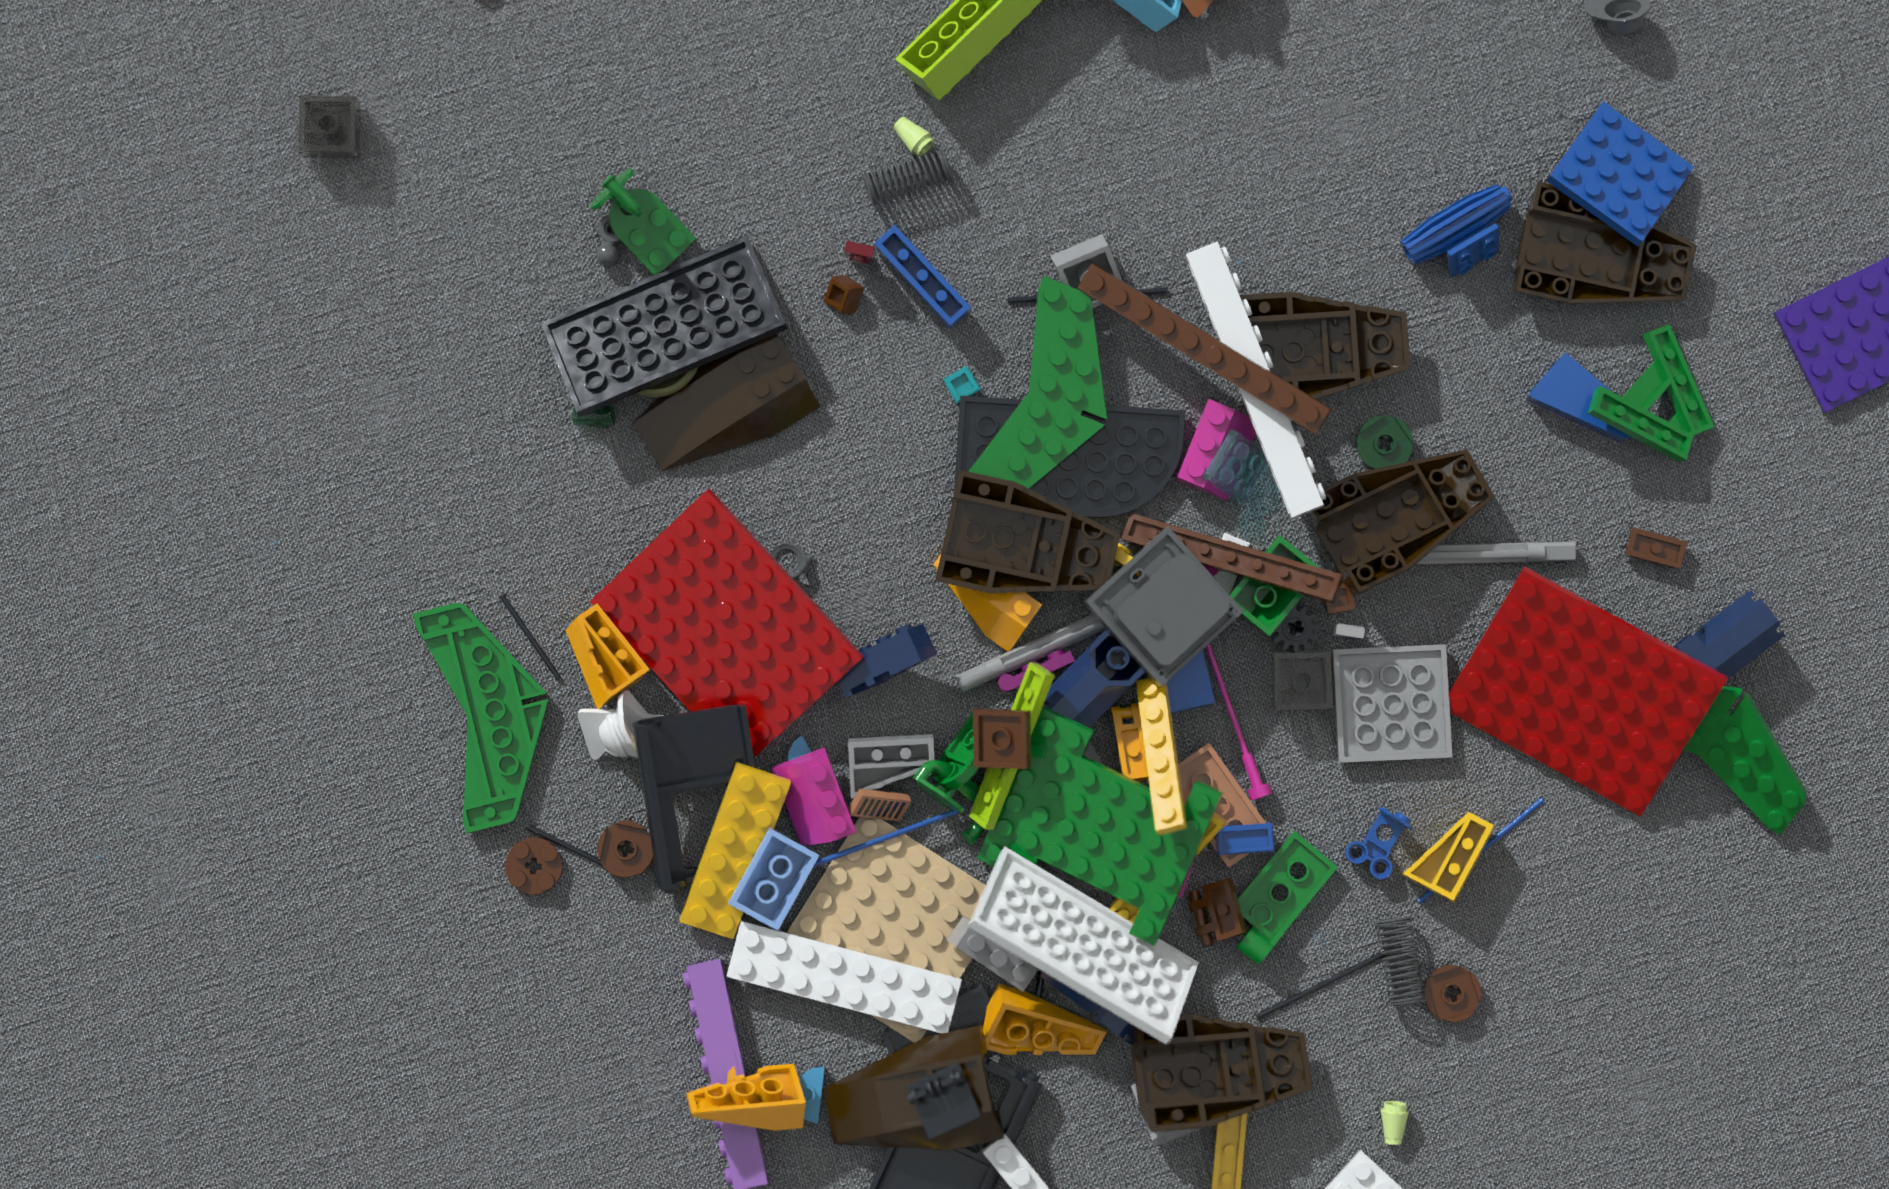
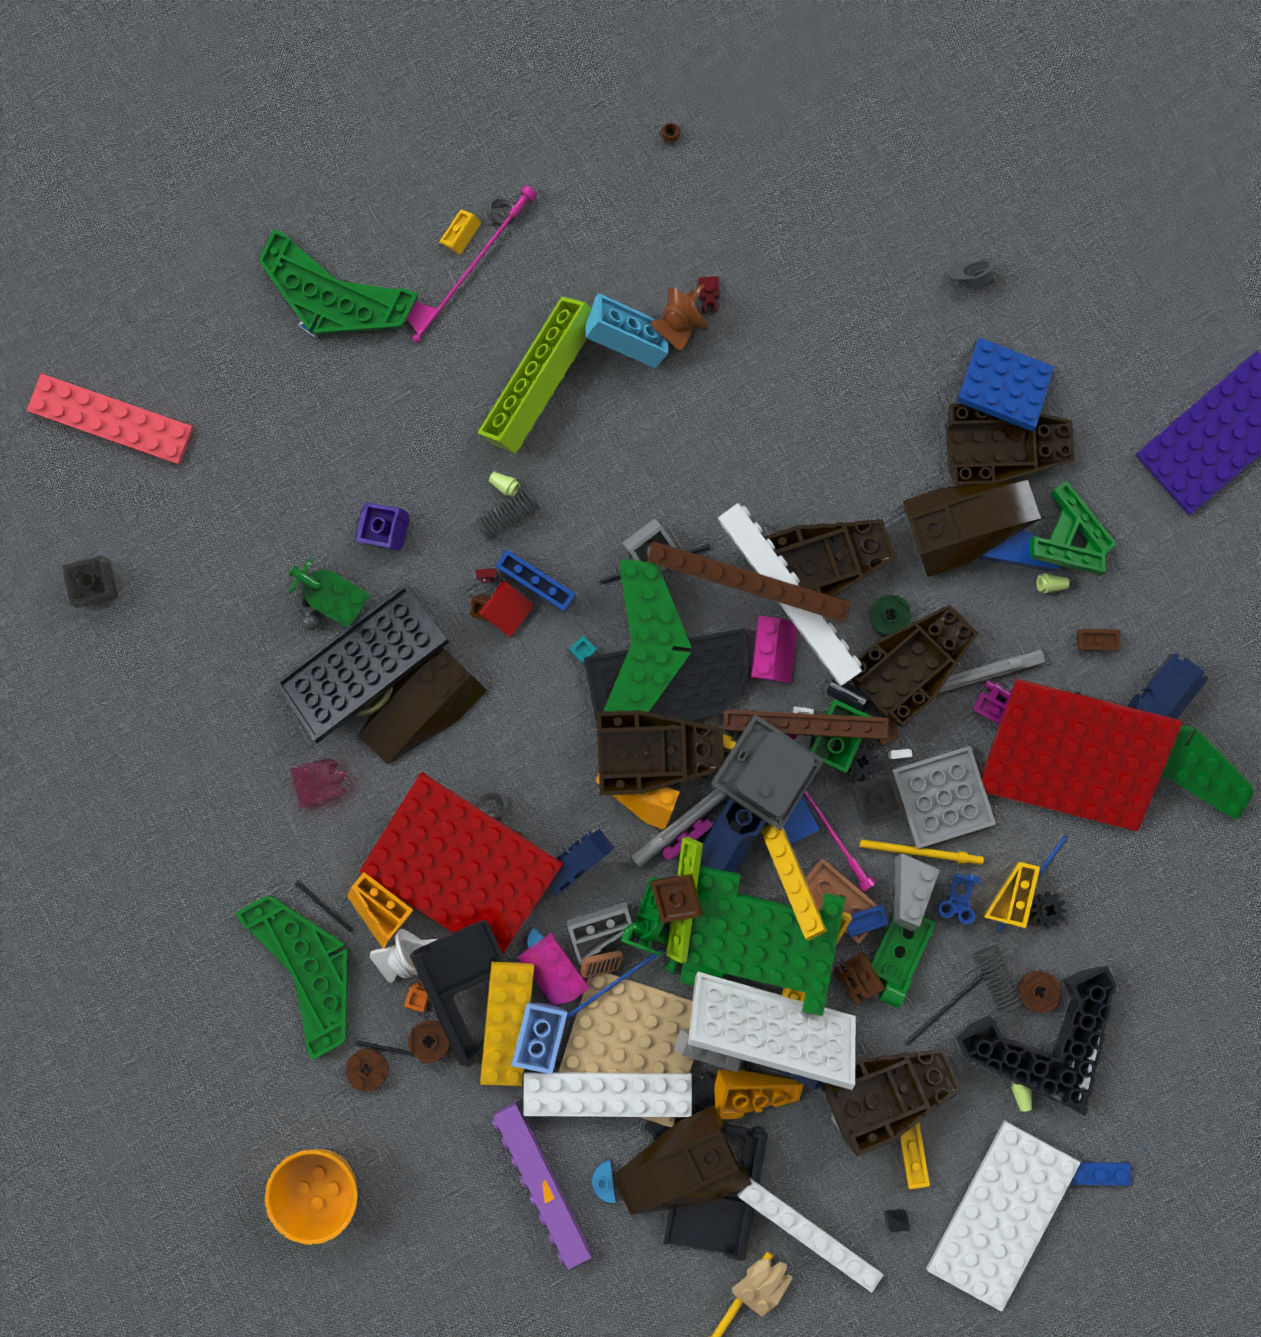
camera: 15 degrees left, 0 degrees up
(425, 1004) = (311, 1196): none -> light orange piece
(564, 470) = (318, 782): none -> clear pink plate
(600, 418) = (333, 739): clear green cone -> none
(625, 787) = (417, 998): none -> orange tile
(735, 151) = (382, 526): none -> dark purple slope
(763, 1100) = (569, 1201): light orange wedge -> none
(874, 304) = (506, 609): none -> red tile
(943, 1100) = (702, 1171): black hinge -> none
(1130, 742) = (767, 873): light orange plate -> none
(1235, 467) = (790, 658): clear light blue plate -> none
(1301, 536) = (849, 696): none -> black axle
(1317, 814) = (912, 890): none -> light grey wedge
(1395, 790) = (960, 857): none -> yellow bar
(1456, 1109) = (1070, 1069): none -> black wedge
(1461, 231) = (904, 452): blue plate -> none
(1483, 596) = (988, 706): none -> magenta plate
(1502, 888) = (1055, 907): none -> black gear
(1519, 344) = (968, 521): none -> dark brown wedge
(1613, 457) = (1050, 583): none -> yellowish green cone

